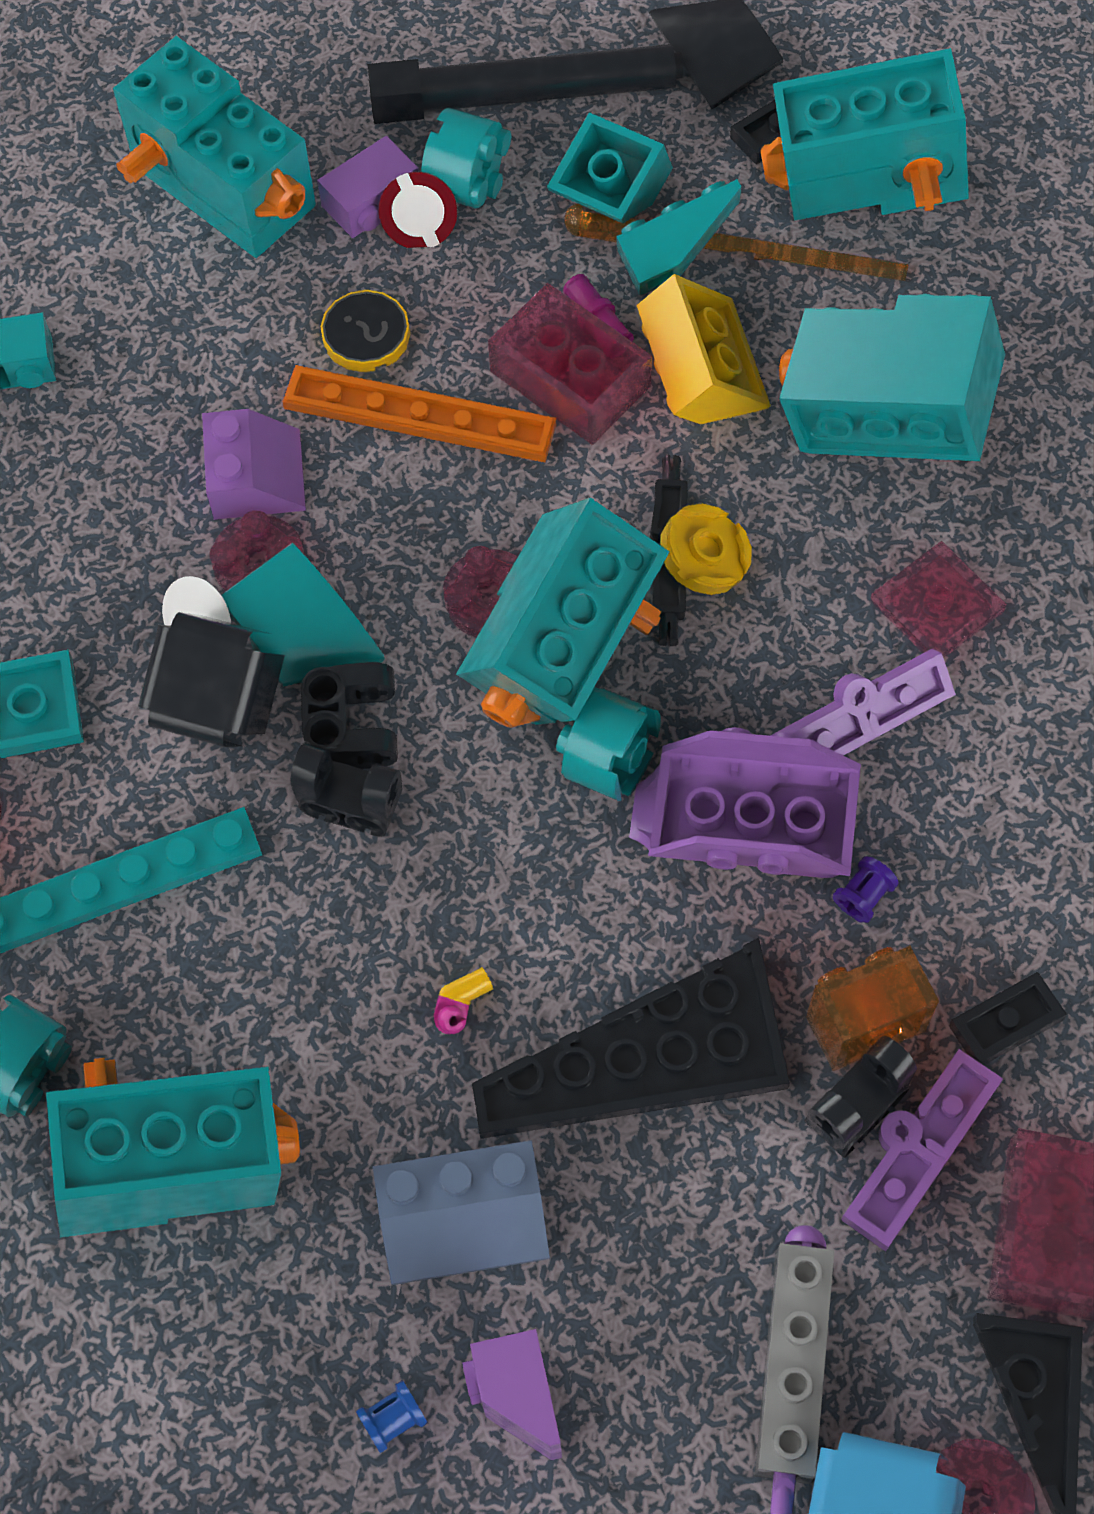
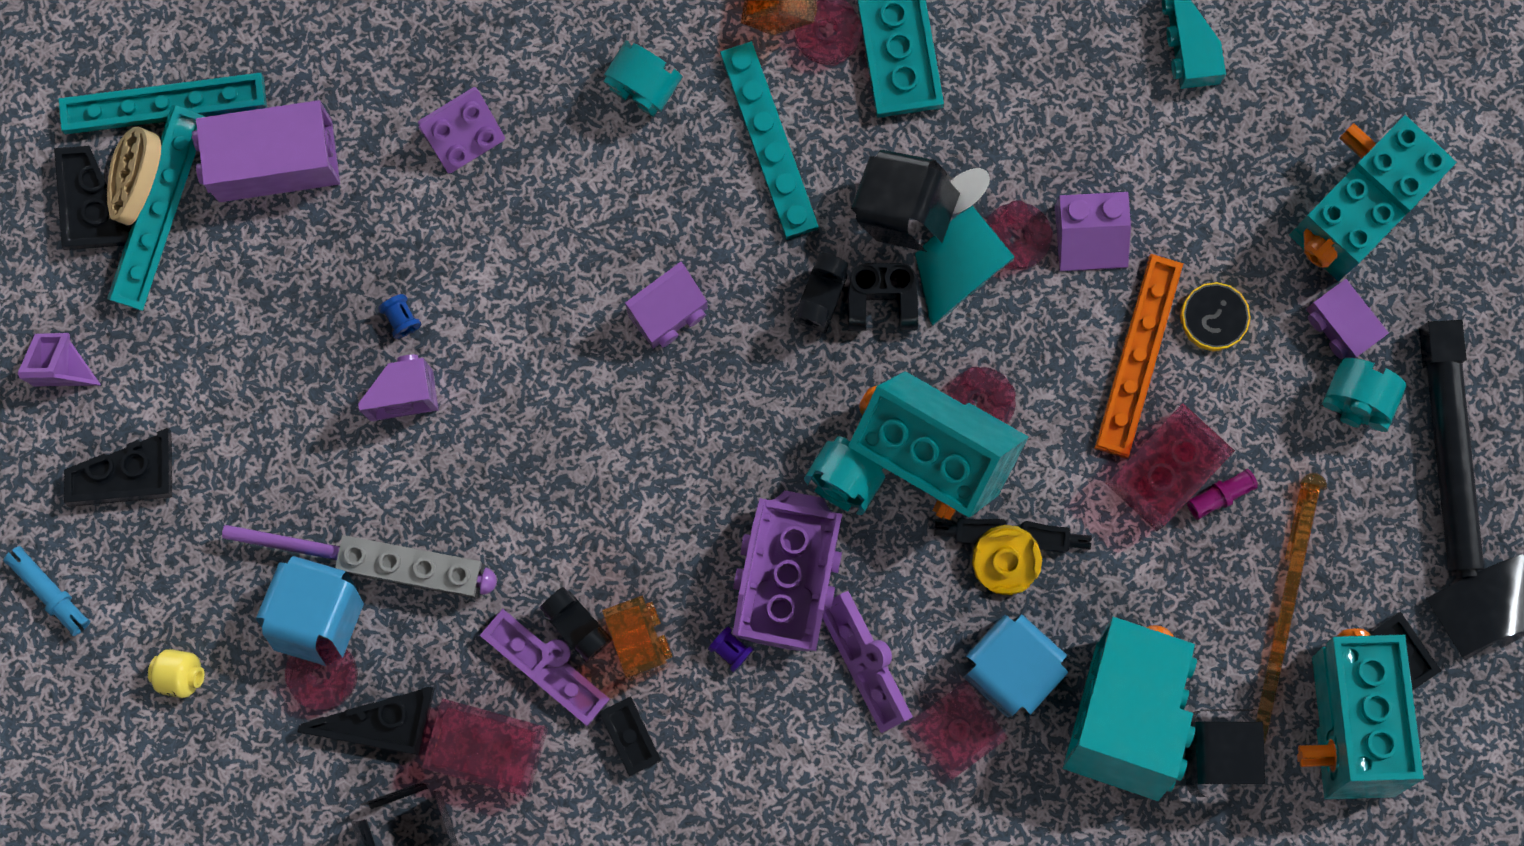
camera: 90 degrees right, 15 degrees up
(83, 1339) = (461, 130): none -> medium lavender bracket
(165, 1147) = (566, 171): teal piece -> none
(370, 1000) = (667, 306): none -> medium lavender slope
(417, 210) = (1319, 357): sticker -> none
(455, 998) = (669, 365): arm -> none
(461, 1212) = (523, 363): sand blue slope -> none
(611, 169) = (1350, 509): teal slope -> none
(666, 1050) = (626, 510): black wing -> none
(674, 239) = (1277, 549): teal slope -> none
(701, 352) = (1181, 572): yellow slope -> none
(848, 513) = (1015, 665): none -> dark azure piece
(938, 263) = (1225, 753): none -> black piece

